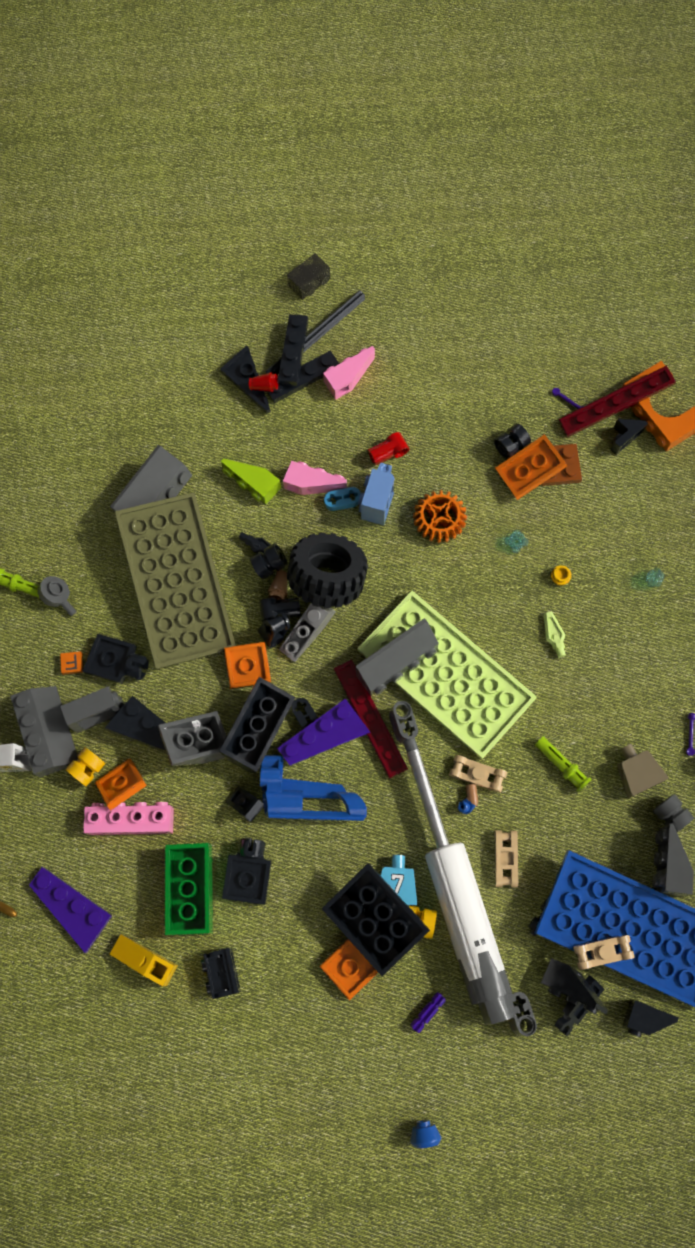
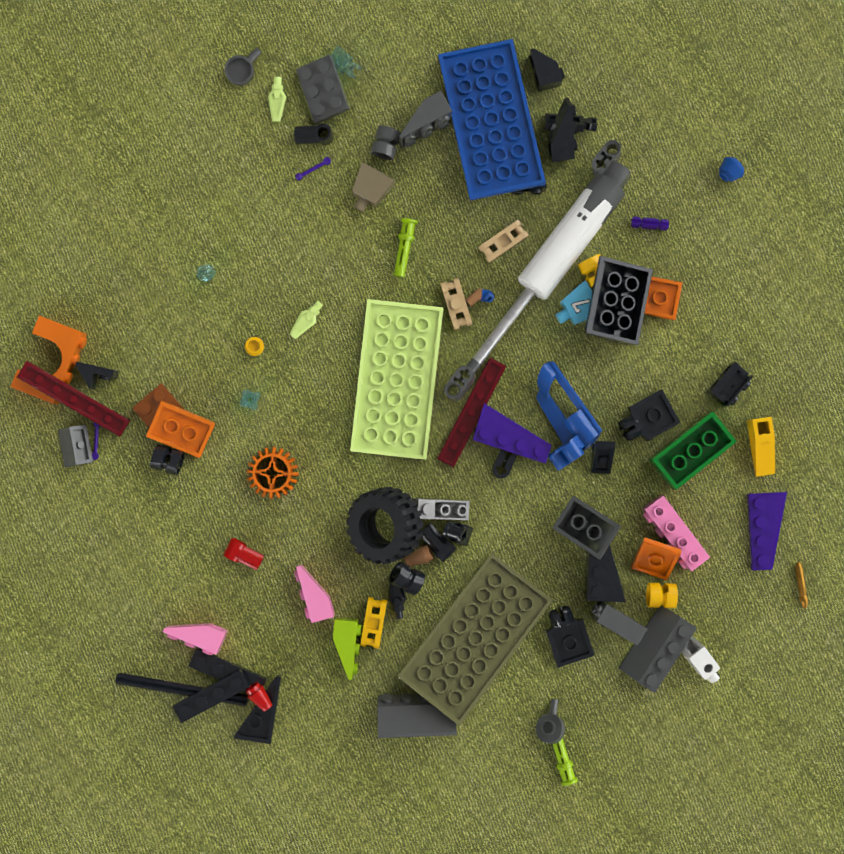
camera: 130 degrees left, 15 degrees up
(71, 663) = (593, 670): orange tile -> none
(246, 664) = (498, 534): orange plate -> none
(253, 512) = (373, 623): none -> yellow plate
(256, 725) = (542, 488): black slope -> none
(308, 276) = (132, 734): clear smoke brick -> none
(342, 497) = (314, 557): dark azure beam -> none
(377, 495) = (290, 532): medium blue hinge -> none
(397, 657) = (416, 421): dark grey slope -> none
(574, 382) = (75, 445): none -> dark grey panel
(603, 952) = (524, 128): tan plate -> none

